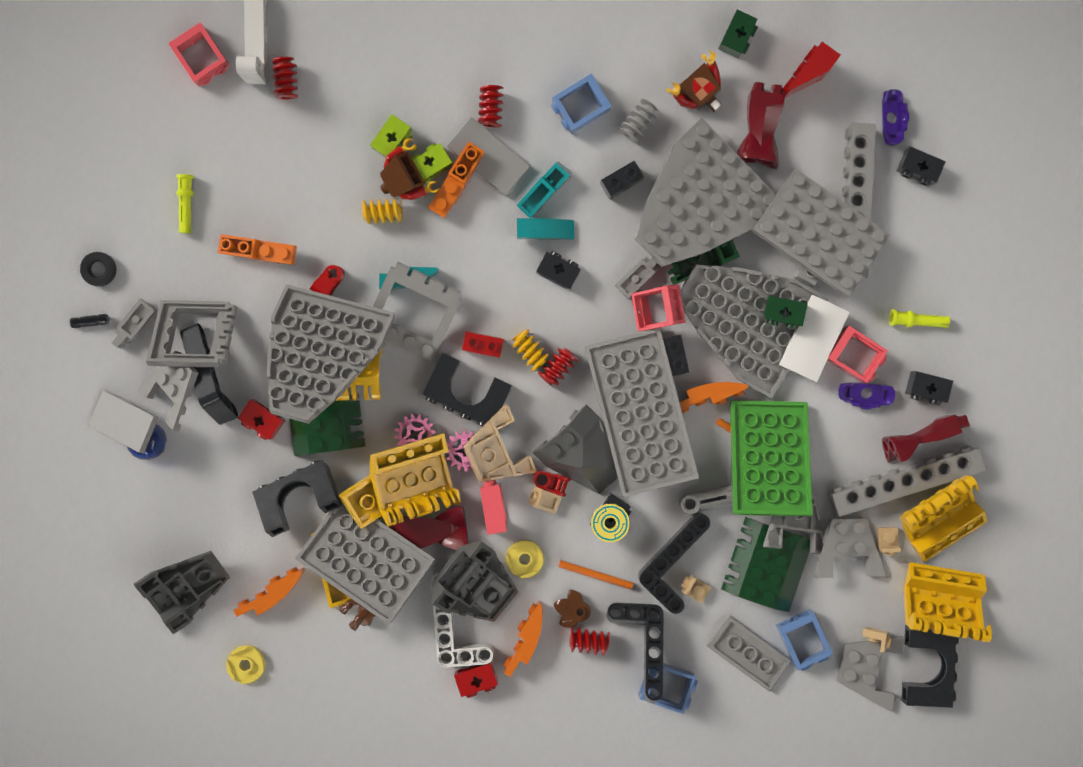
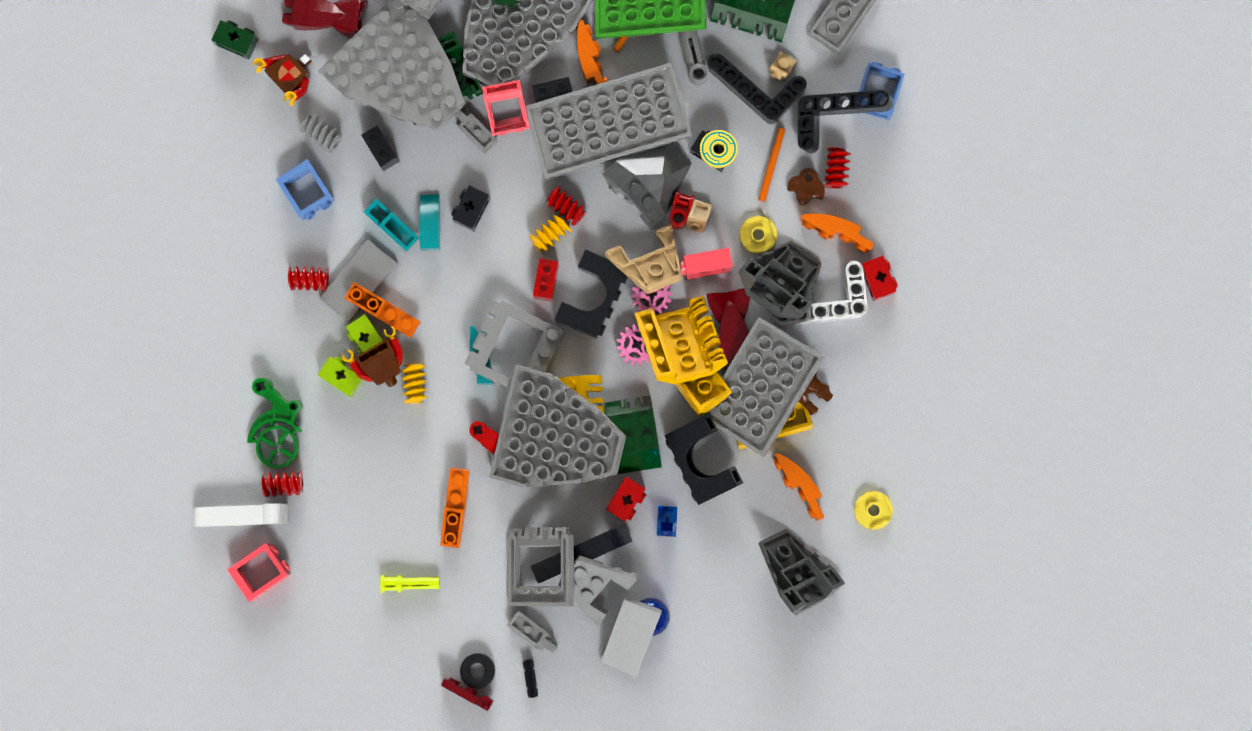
camera: 85 degrees left, 5 degrees down
(74, 257) = (469, 694): none -> dark red hinge
(237, 459) = (666, 521): none -> clear blue slope
(358, 78) = (281, 411): none -> green piece

